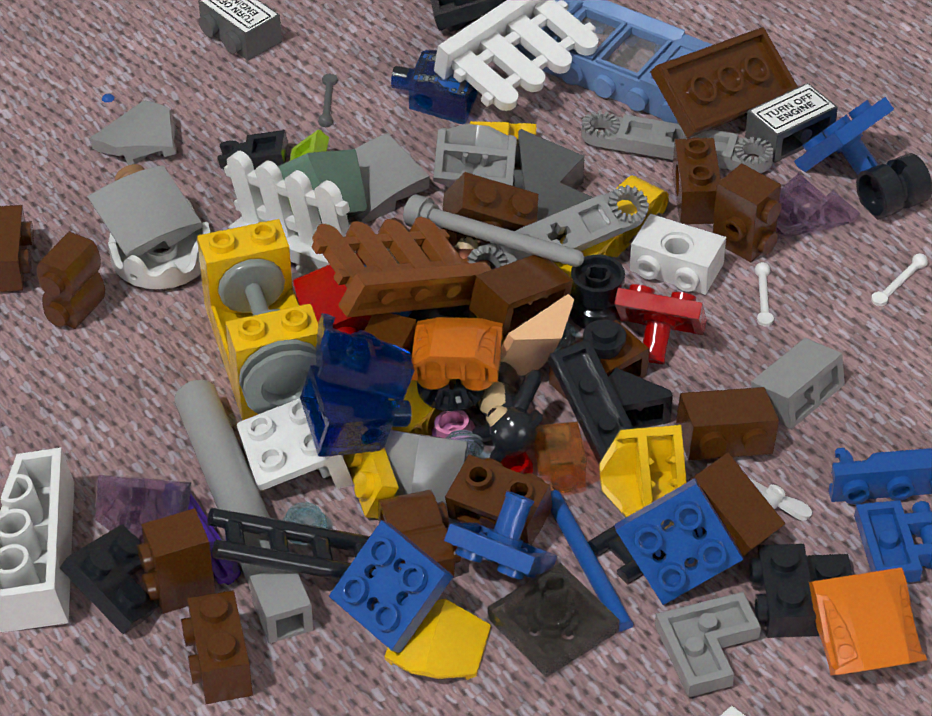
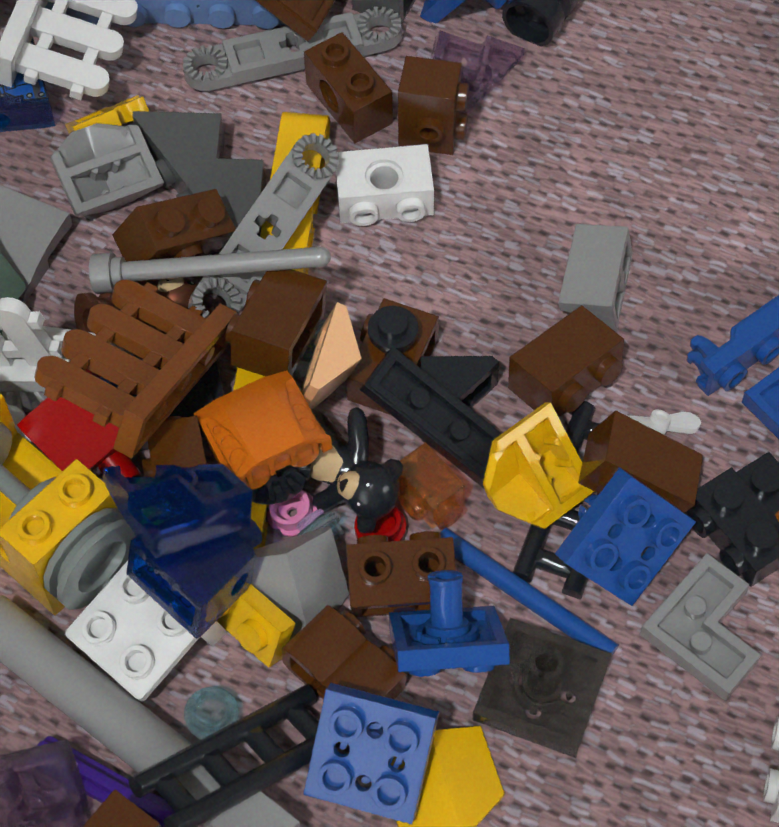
camera: 30 degrees left, 15 degrees up
(596, 289) = (346, 272): black wheel -> none
(660, 316) = (424, 271): red plate -> none
(764, 318) = (509, 214): white hinge -> none
(919, 261) = (602, 136): white hinge -> none

